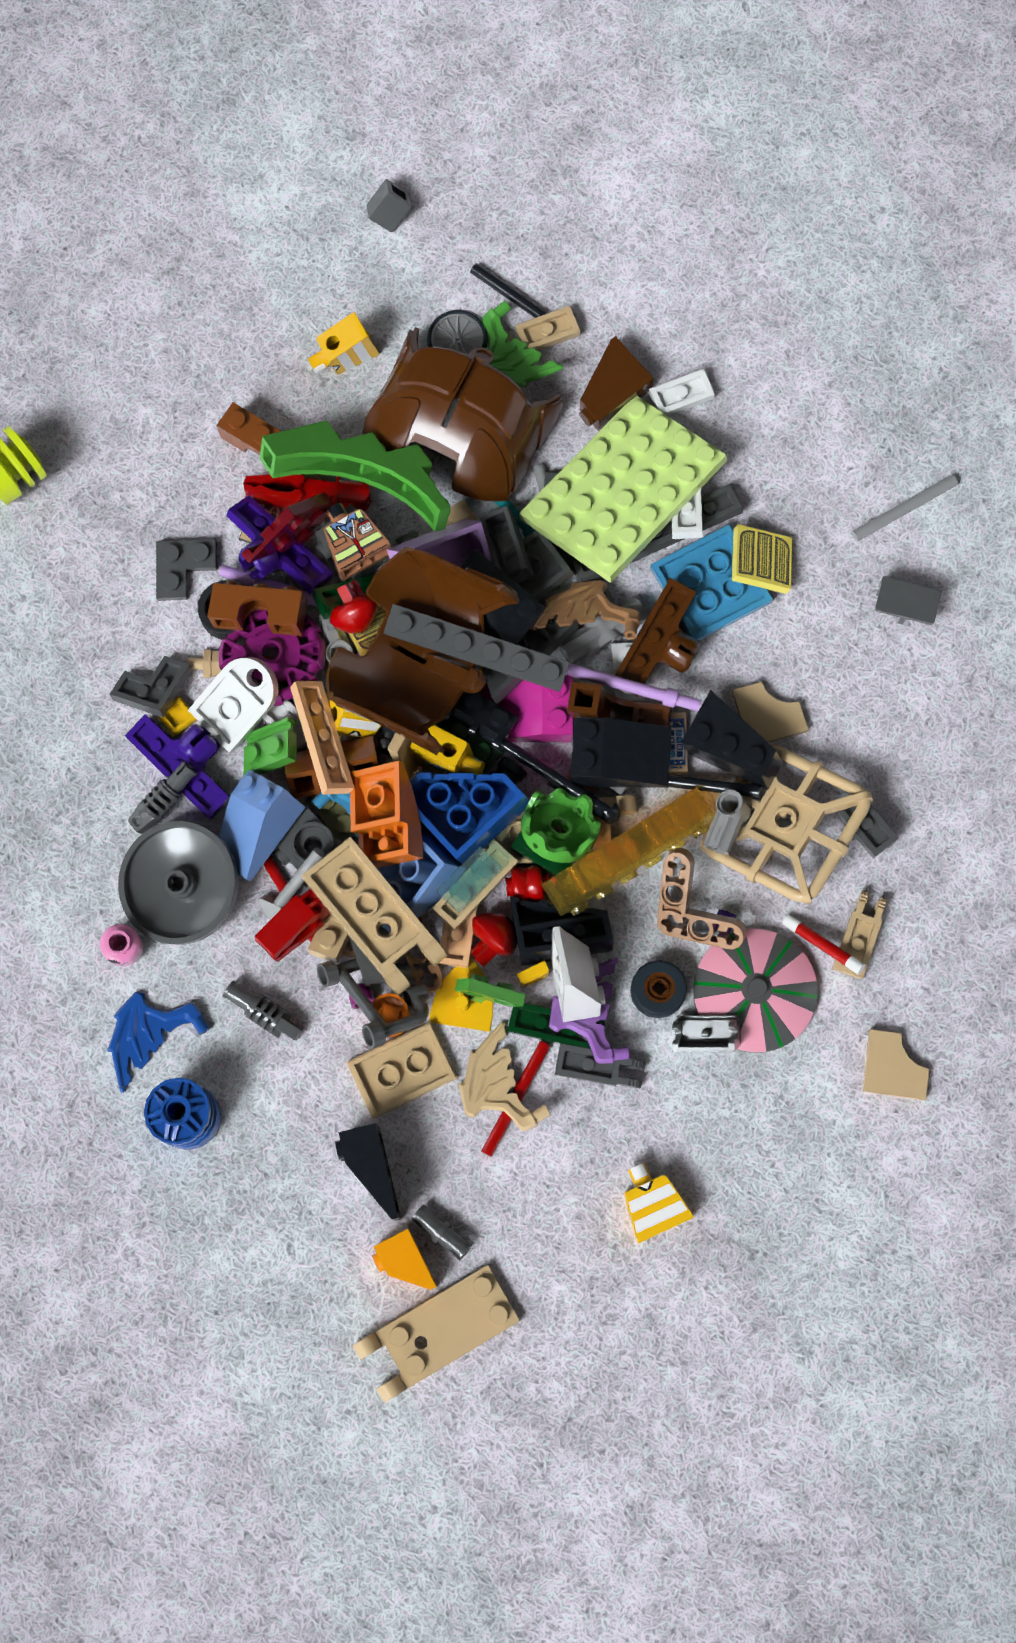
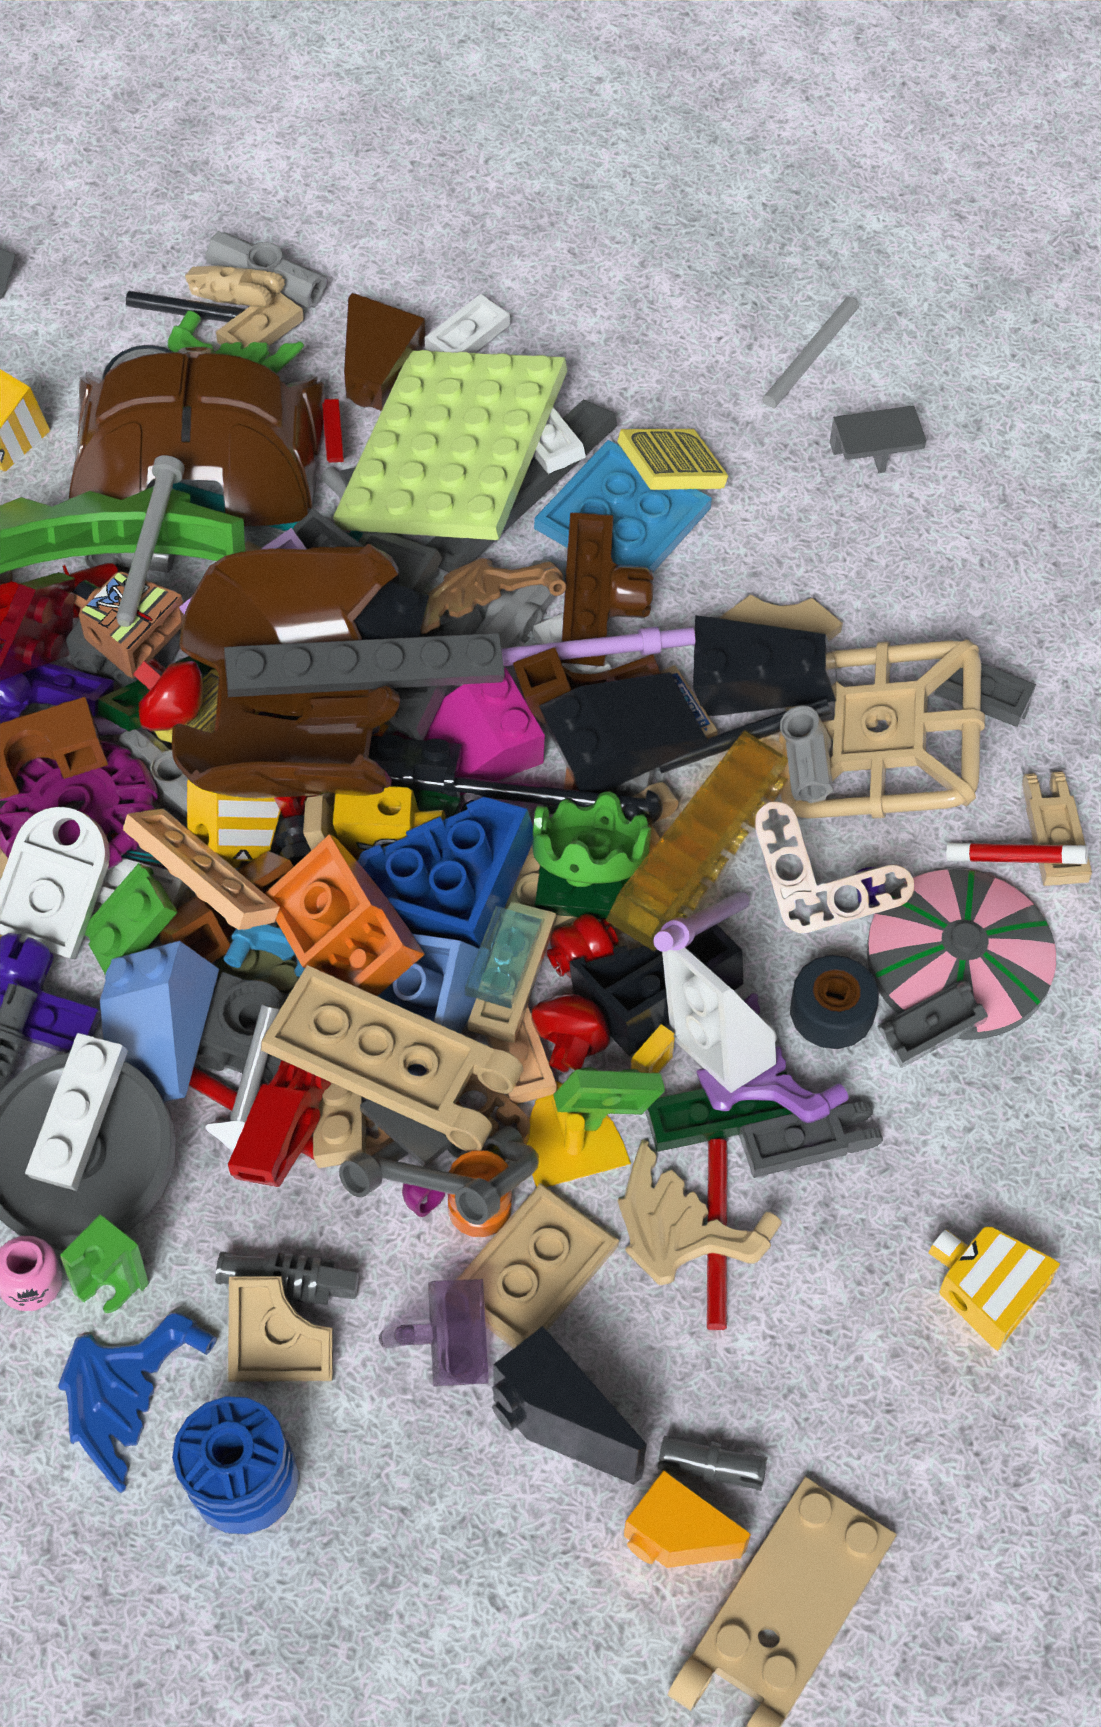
camera: 30 degrees left, 20 degrees down
(163, 959) = (102, 1258): none -> bright green hinge
(185, 864) = (76, 1112): none -> white plate
(237, 1044) = (271, 1338): none -> tan tile
(336, 1092) = (454, 1333): none -> clear purple plate
(418, 451) = (167, 472): none -> light grey bar
(543, 292) = (234, 285): none -> tan hinge
(552, 443) = (332, 430): none -> red tile
(561, 933) = (681, 932): none -> lavender bar
(580, 299) = (301, 283): none -> light grey piece

